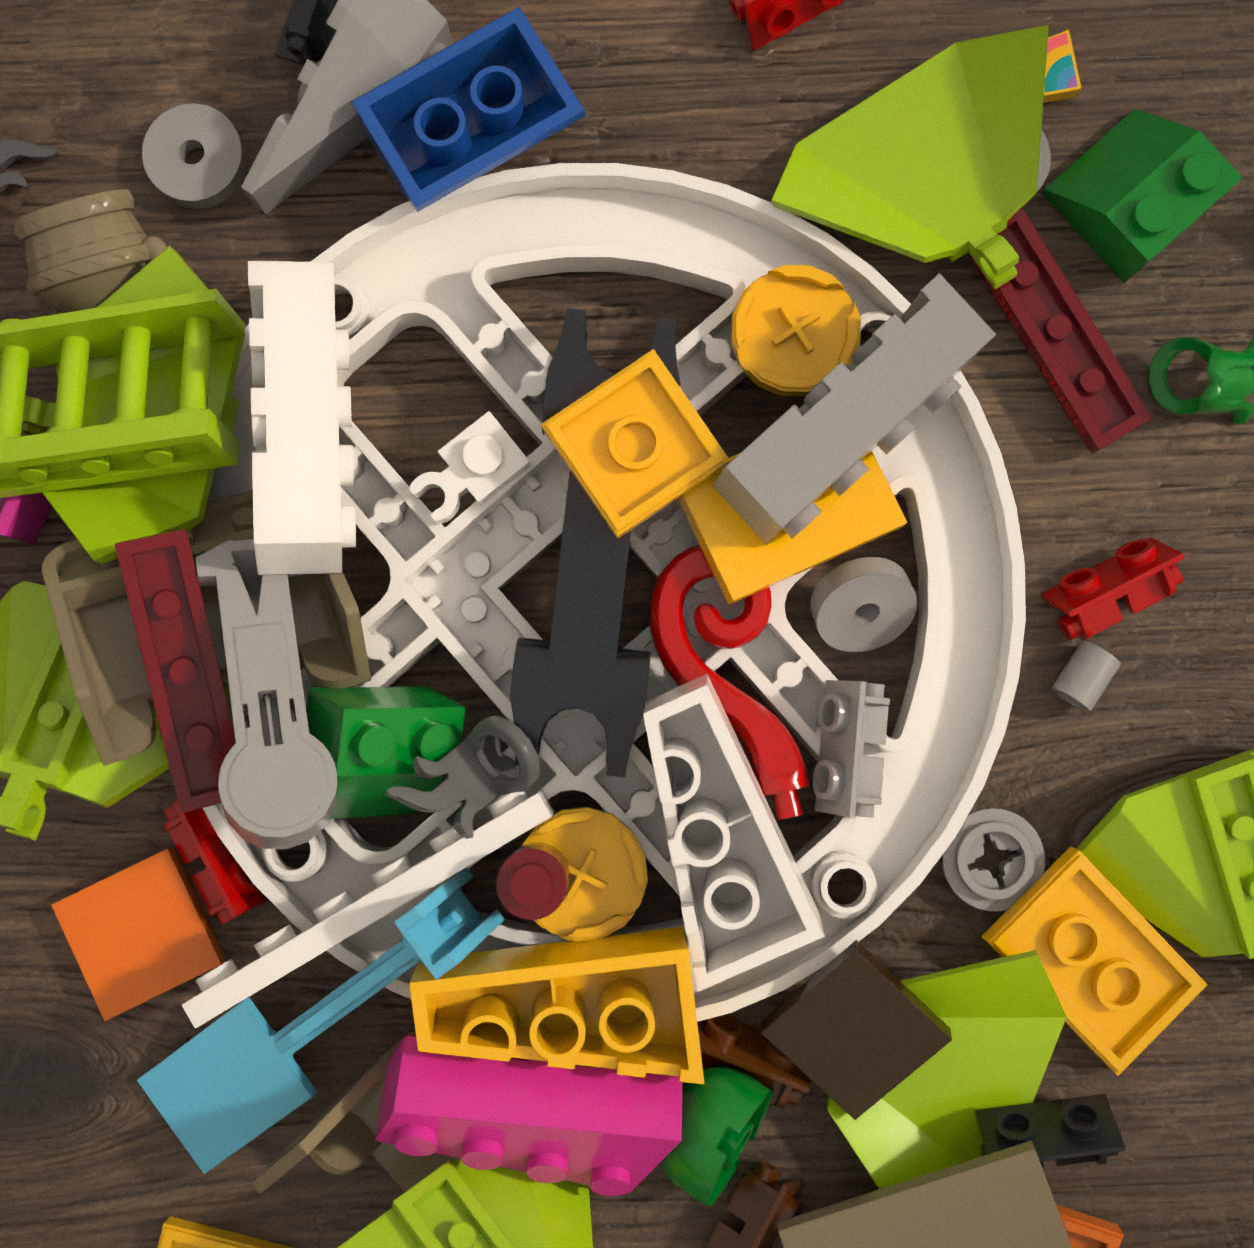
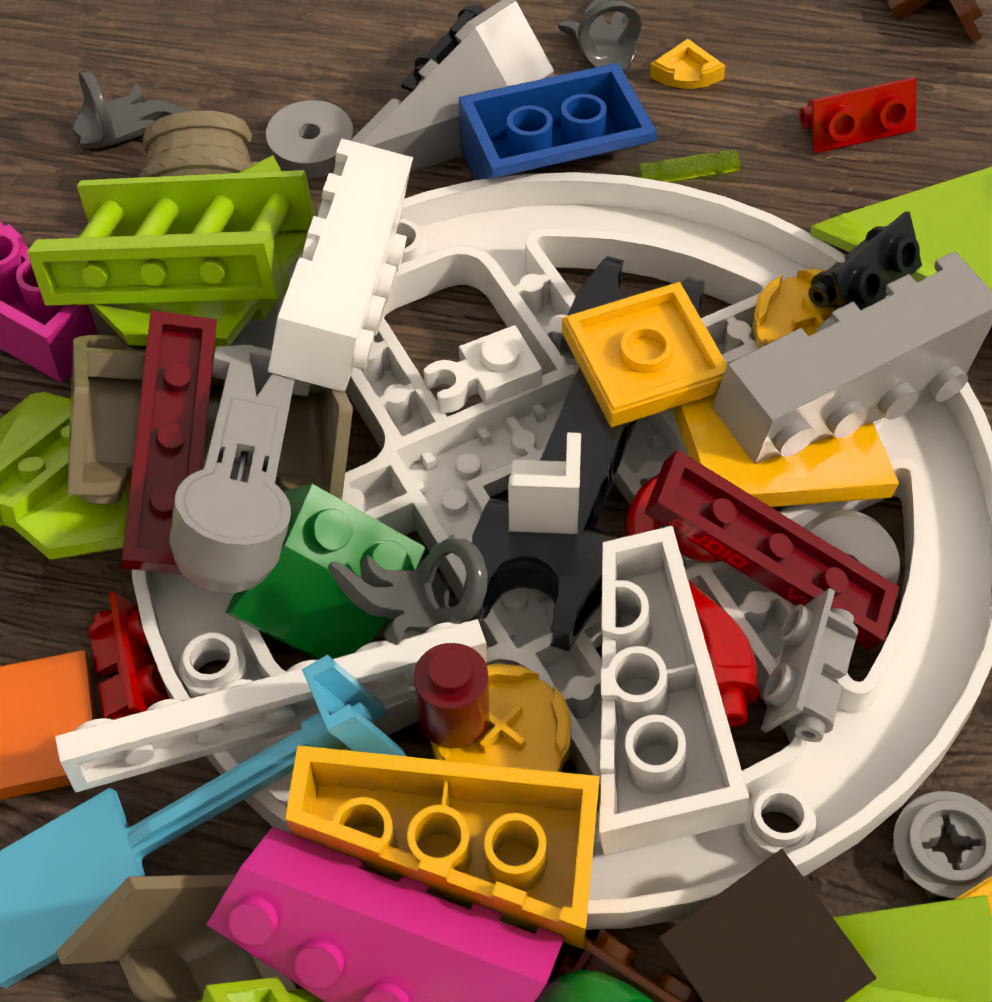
camera: 15 degrees right, 30 degrees down
(570, 644) = (546, 493): none -> white panel
(623, 106) = (690, 166): none -> clear neon green wheel
(794, 638) = (768, 545): none -> dark red plate
(858, 244) = (868, 268): none -> black hinge

